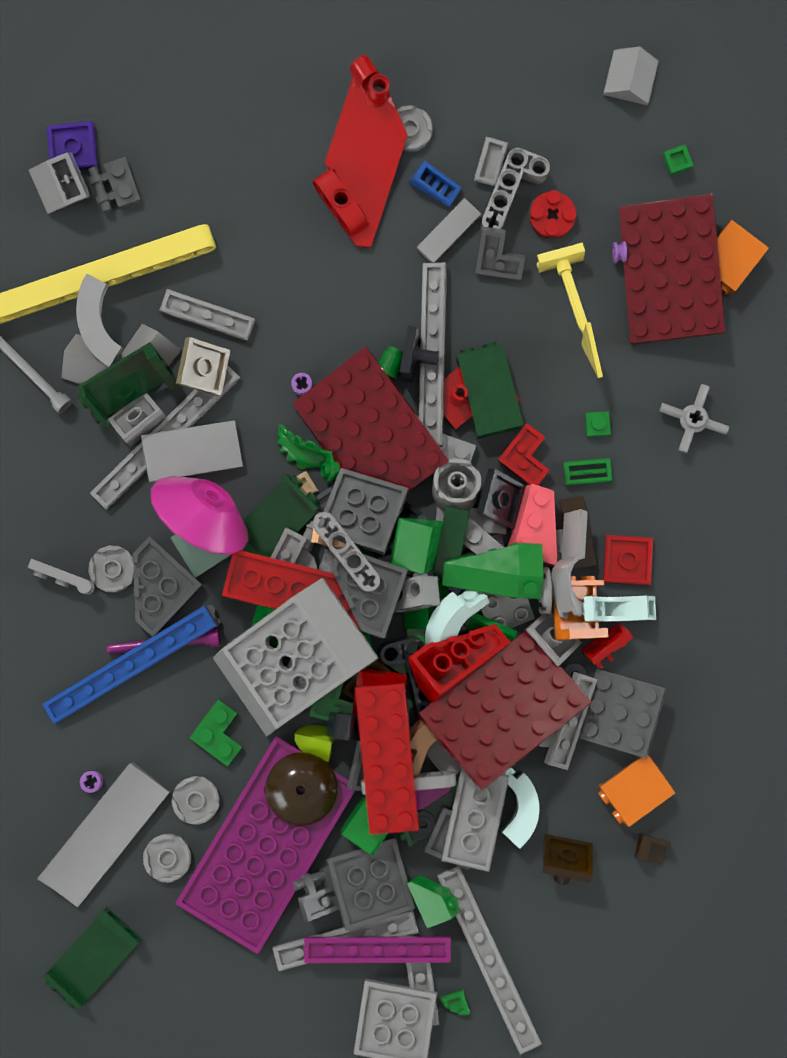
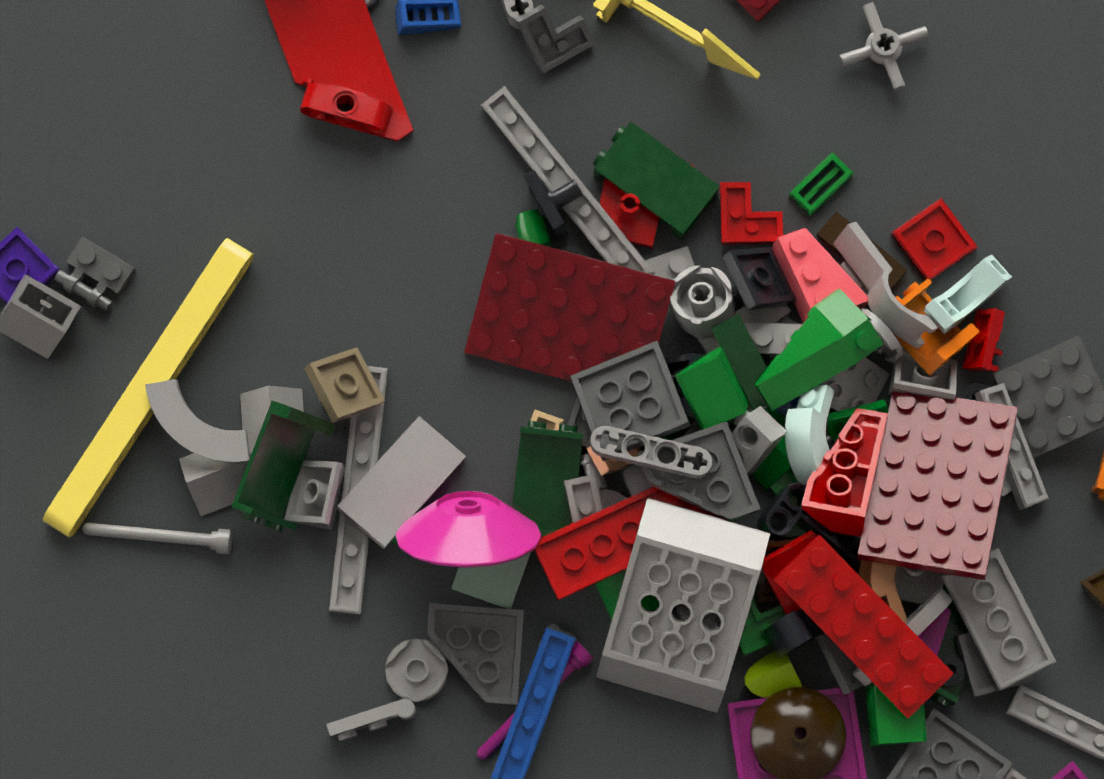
camera: 35 degrees left, 5 degrees down
(207, 315) = (301, 331): light grey tile -> none
(211, 733) = (660, 758): green plate -> none
(307, 454) = (523, 391): green plant -> none
(308, 382) = (450, 331): medium lavender bush -> none
(433, 900) = (1025, 739): slope -> none
(448, 231) = (480, 52): light grey tile -> none
(526, 814) = (1042, 572): light aqua arch -> none
(597, 424) = (791, 128): green plate -> none

